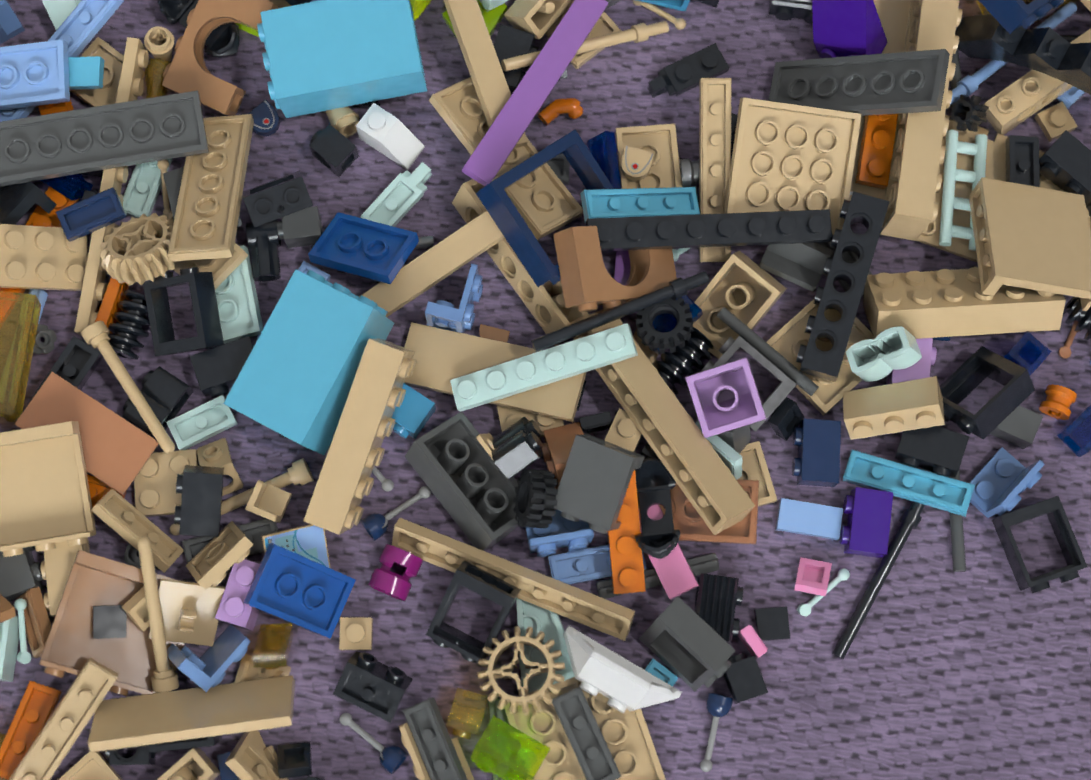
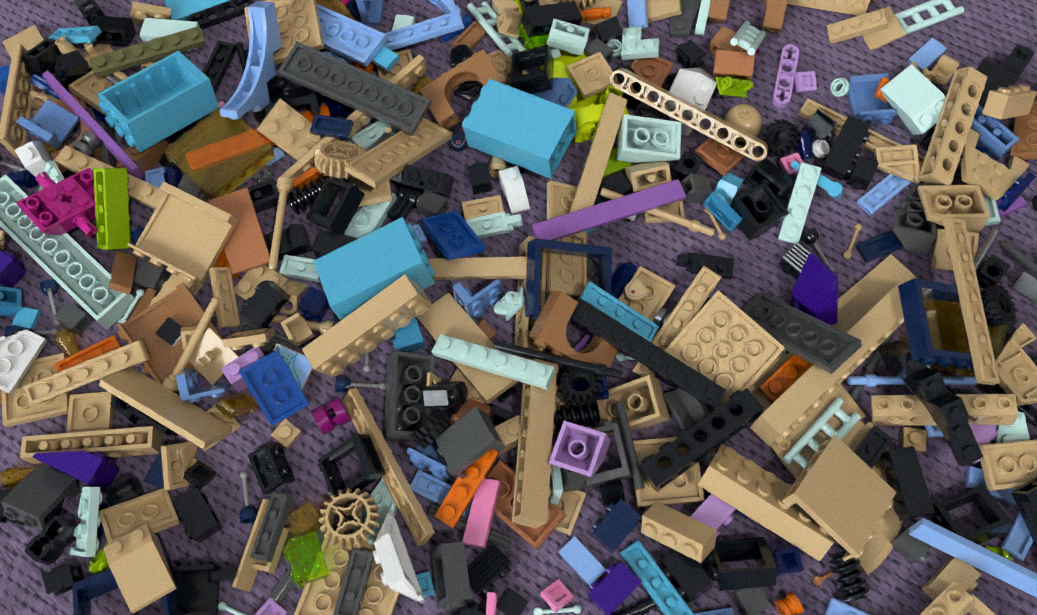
camera: 45 degrees right, 10 degrees down
(159, 43) = (435, 68): tan cone -> none
(260, 456) = (314, 305): none -> clear blue brick
(367, 186) = (482, 207): none -> tan plate
(504, 283) = (510, 304): none -> light aqua hinge
(561, 106) = (618, 235): orange arm -> none
(654, 488) = (503, 474): black piece -> none
(888, 351) = (695, 494): light aqua brick -> none
(968, 113) = (857, 395): black gear -> none

